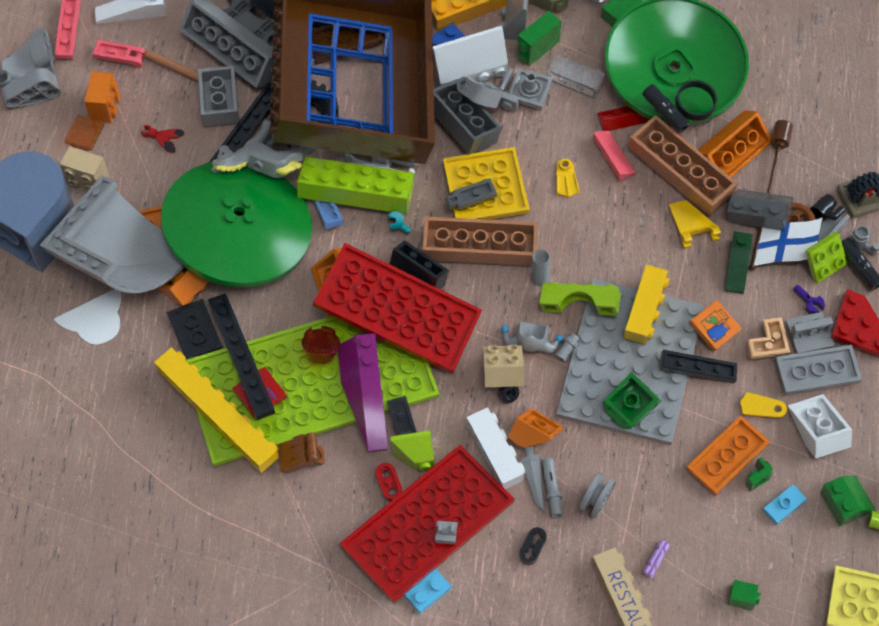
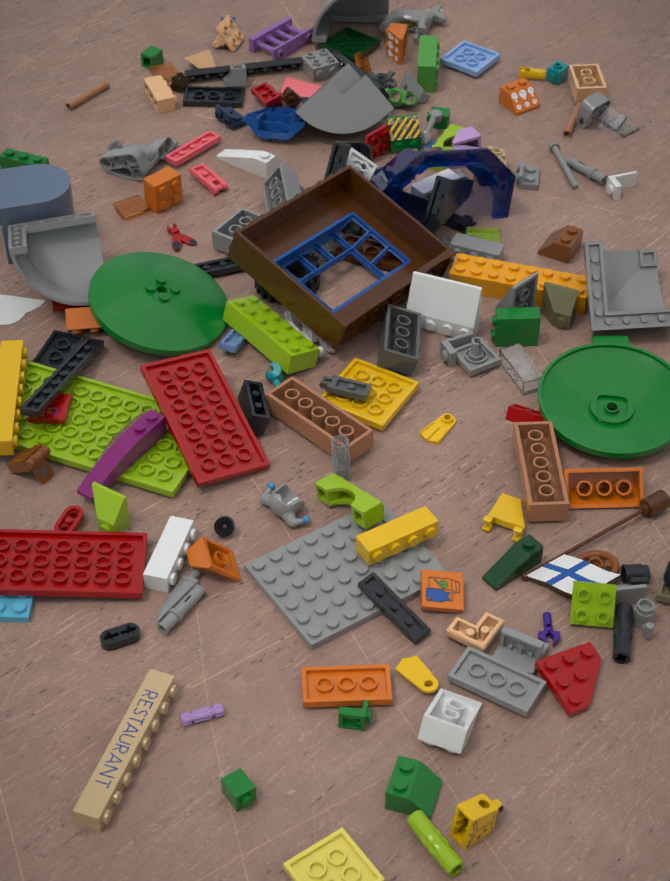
camera: 40 degrees right, 20 degrees down
(82, 168) = (104, 217): tan brick -> none
(172, 65) = (232, 198): nougat piece -> none
(260, 156) = (222, 276): light grey animal -> none
(320, 344) = (121, 402): clear red cone -> none
(401, 416) = (129, 483): black plate -> none
(446, 532) = (62, 573): light grey tile -> none
(480, 92) = (426, 328): light grey piece -> none
(503, 366) = (237, 502): tan brick -> none
(569, 344) = (310, 526): light grey animal -> none
(597, 495) = (204, 631): light grey wheel -> none
(613, 155) = (494, 435): coral slope -> none
(630, 402) = (307, 587): green slope -> none
(666, 108) = (563, 419): black axle -> none
(699, 84) = (601, 416): black tyre -> none
(759, 209) = (571, 537): dark grey slope -> none
(784, 504) = (354, 755): medium azure plate -> none

